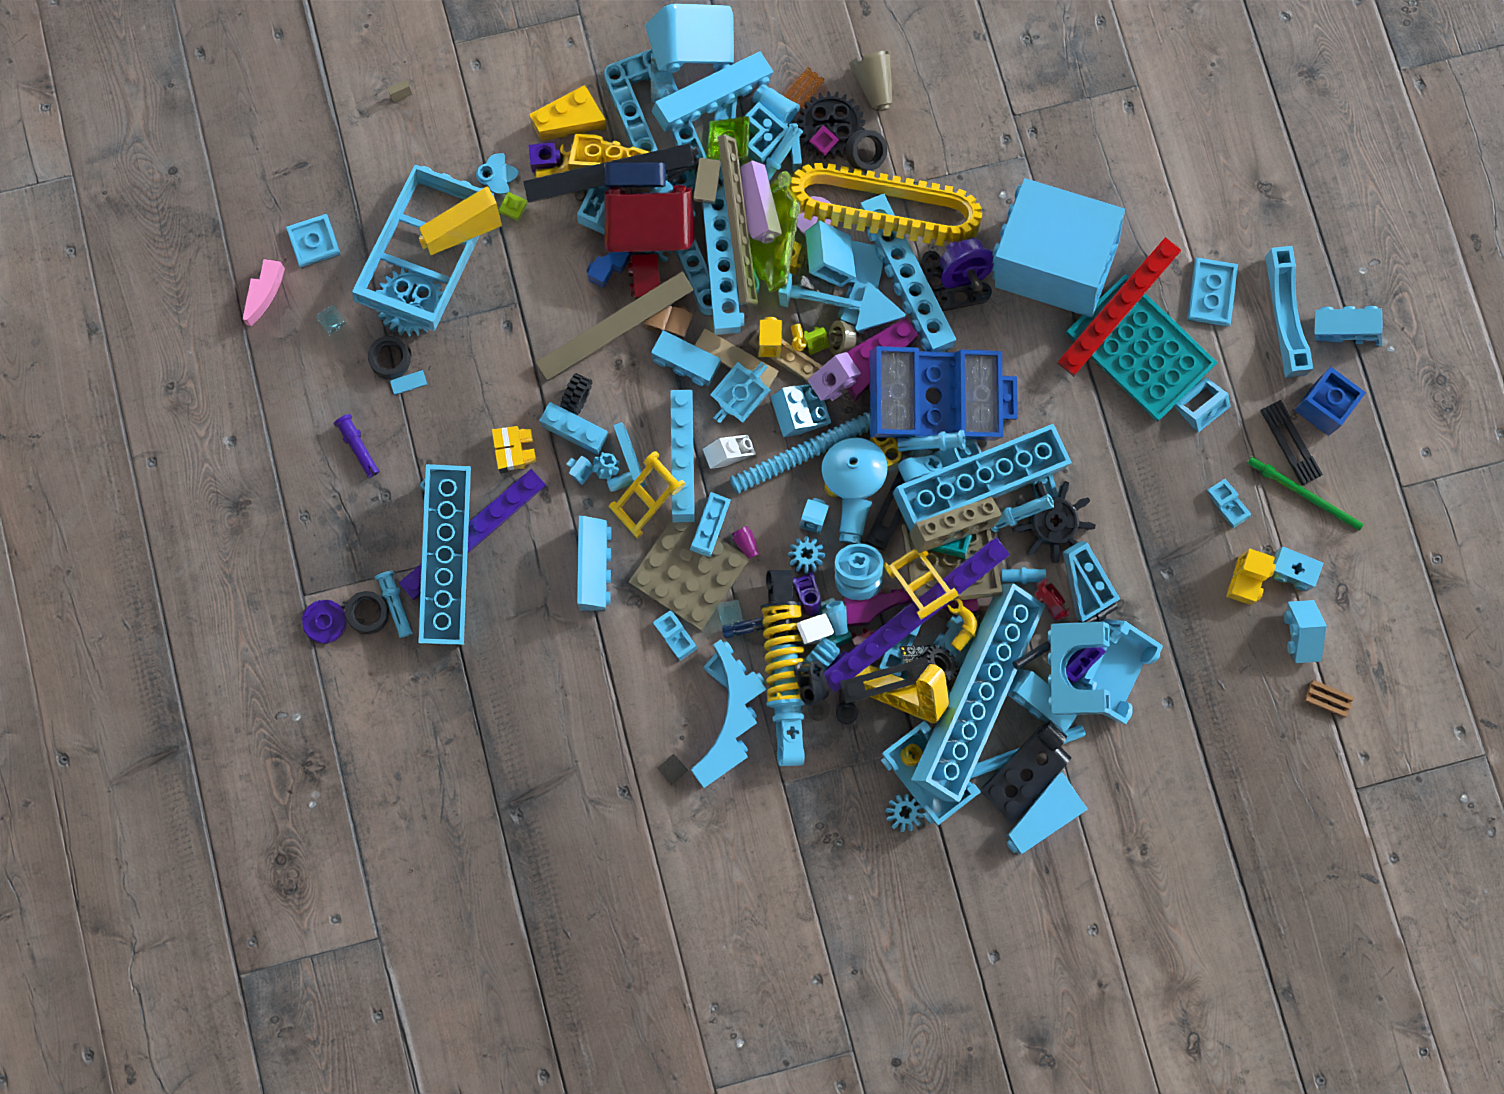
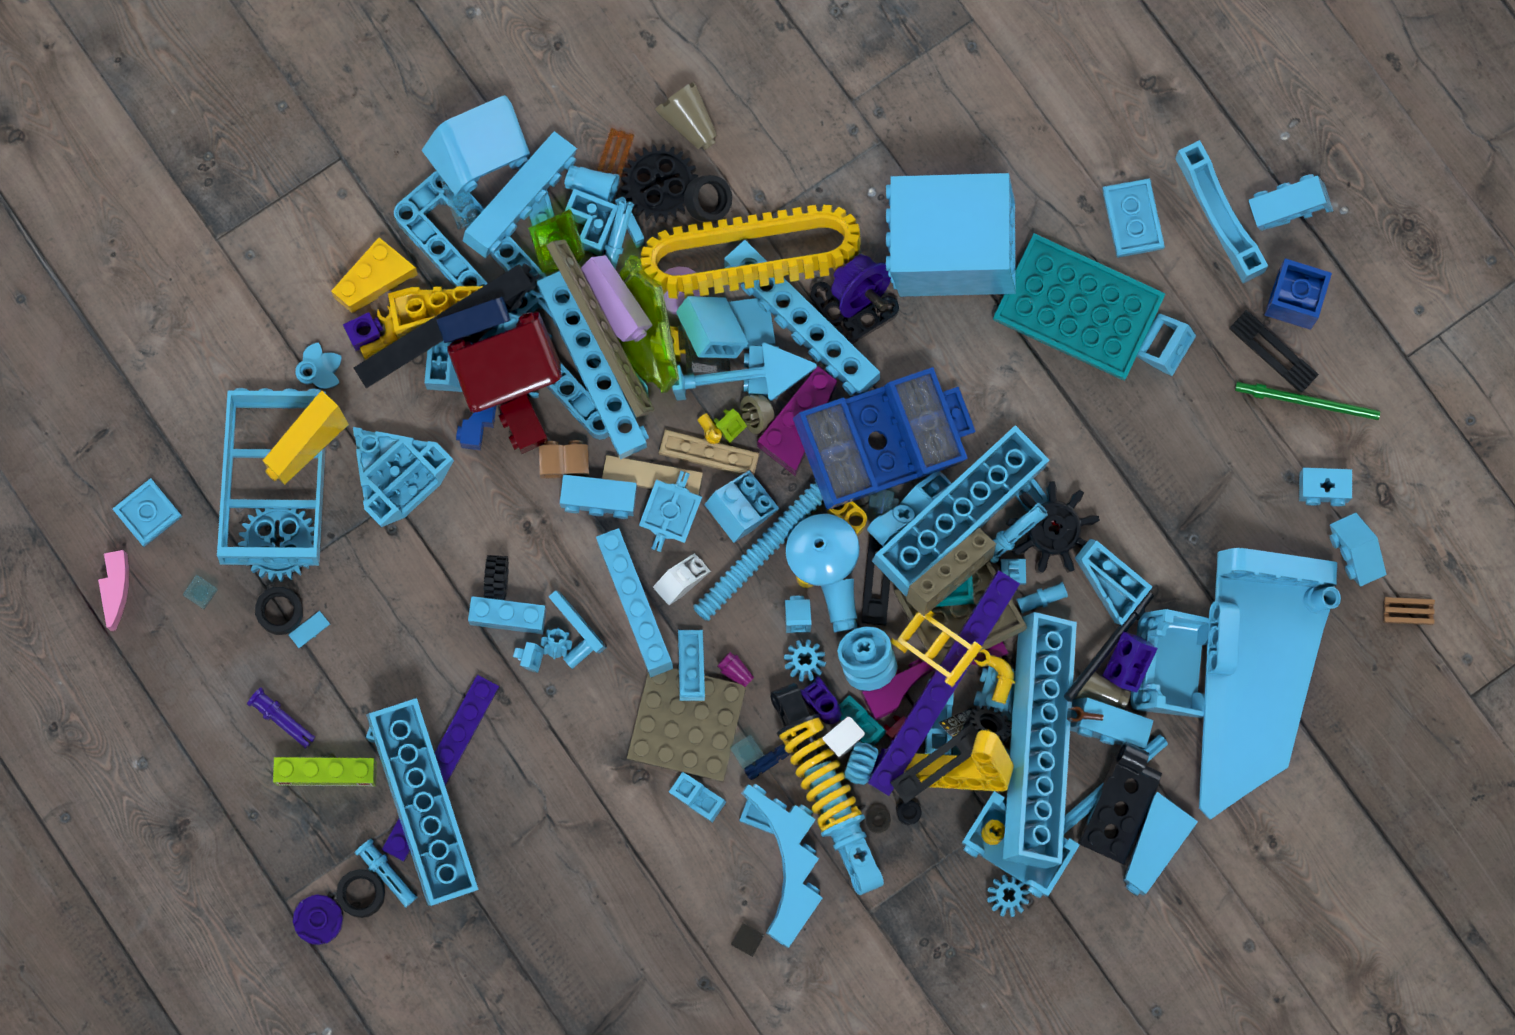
camera: 15 degrees left, 0 degrees up
(375, 501) = (324, 771): none -> lime brick
(399, 91) = (179, 314): dark tan tile -> none
(509, 448) = (446, 662): yellow hips -> none
(513, 206) = (349, 396): lime tile -> none
(527, 280) = (397, 473): none -> medium azure wedge
(593, 564) = (582, 753): medium azure slope -> none
(615, 325) = (509, 488): dark tan tile -> none
(674, 487) = (640, 642): yellow piece -> none
(707, 180) = (552, 297): dark tan tile -> none
(770, 337) = (681, 441): yellow brick -> none
(811, 683) = (862, 794): black piece -> none
(823, 140) = (659, 205): magenta tile -> none
(824, 381) = (768, 447): lavender brick -> none
(837, 616) = (862, 714): medium azure cone -> none
(942, 441) = (904, 487): medium azure pin -> none
(1010, 543) = (1015, 569): none -> medium azure tile
(1021, 683) = (1084, 715): none -> reddish brown hand
(1053, 599) = (1082, 612): dark red plate -> none
(1065, 641) = (1111, 653): medium azure arch -> none
(1119, 306) = (1039, 271): red plate -> none
(1186, 698) = (1259, 666): none -> medium azure panel
(1228, 504) = (1230, 441): medium azure slope -> none
(1249, 573) = (1279, 511): yellow brick -> none

